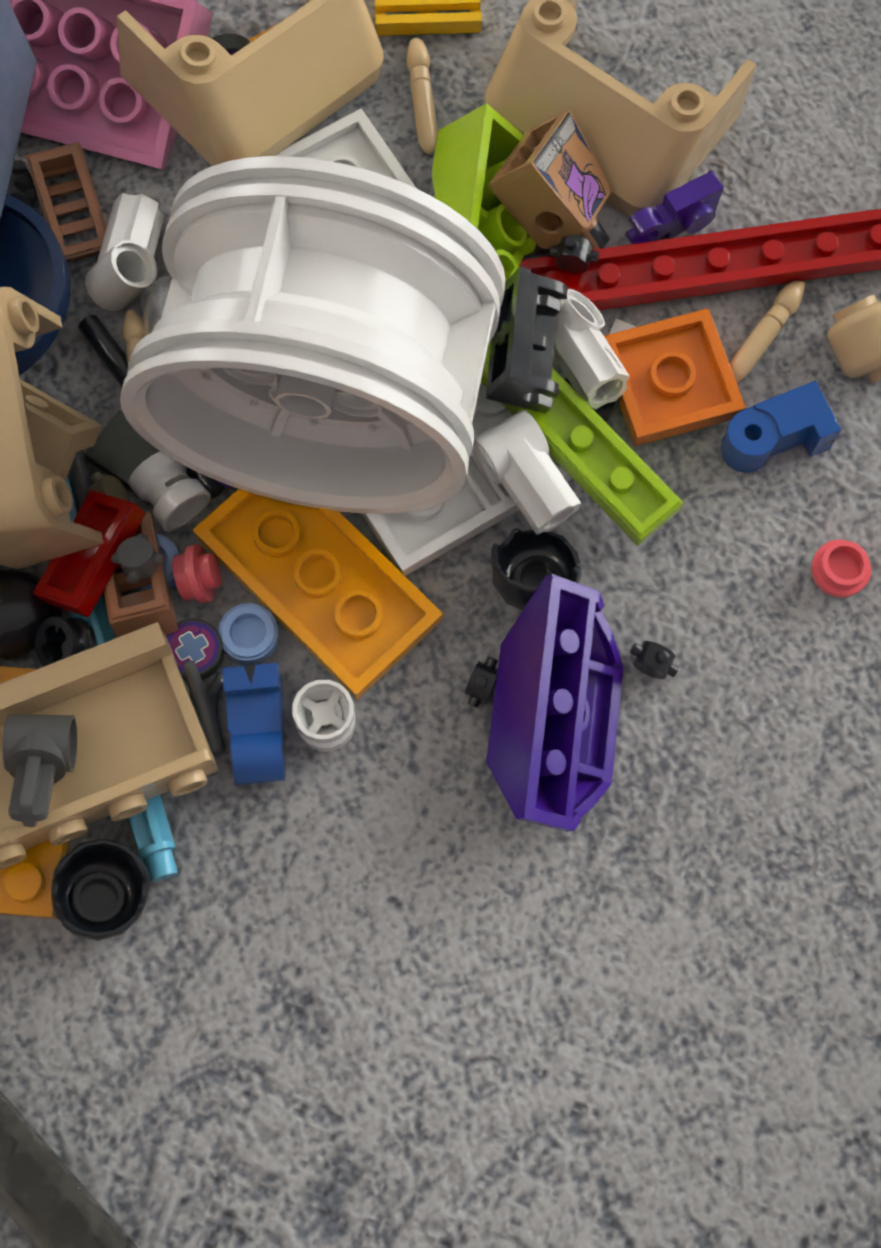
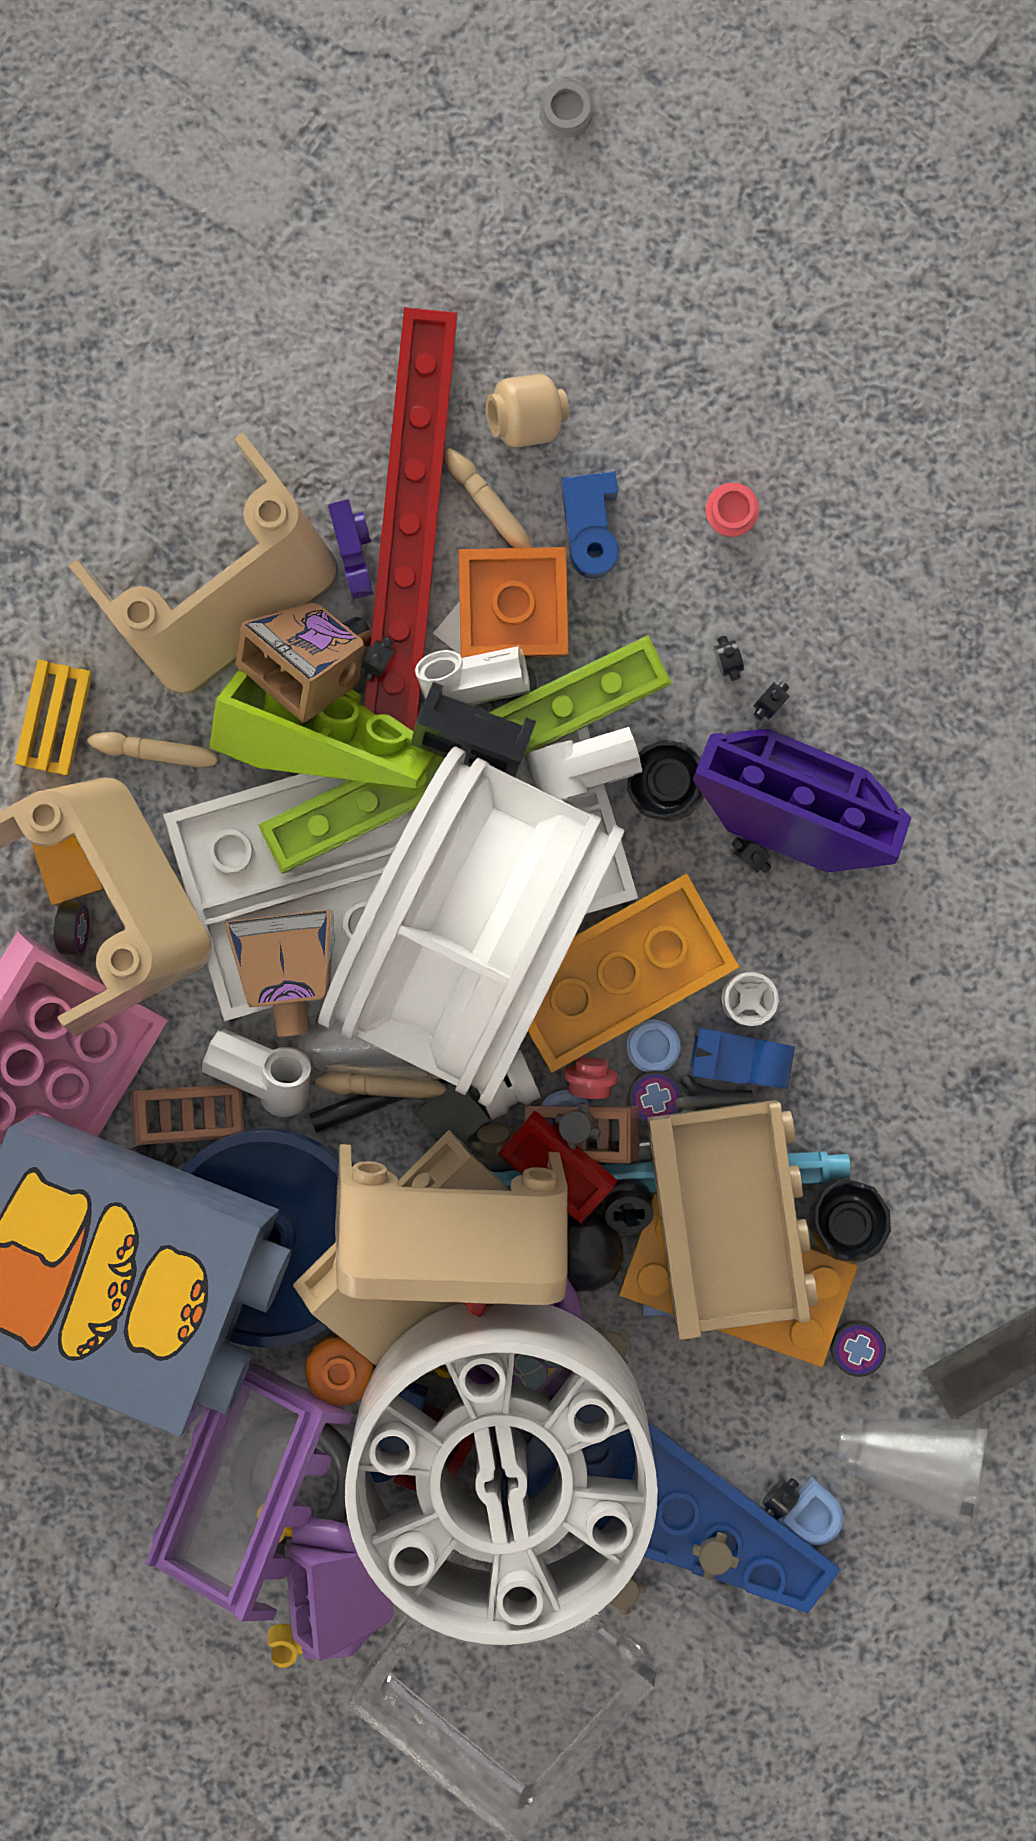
camera: 80 degrees left, 15 degrees up
(37, 755) = (735, 1246): dark grey axle -> none
(685, 604) = (729, 658): none -> black piece

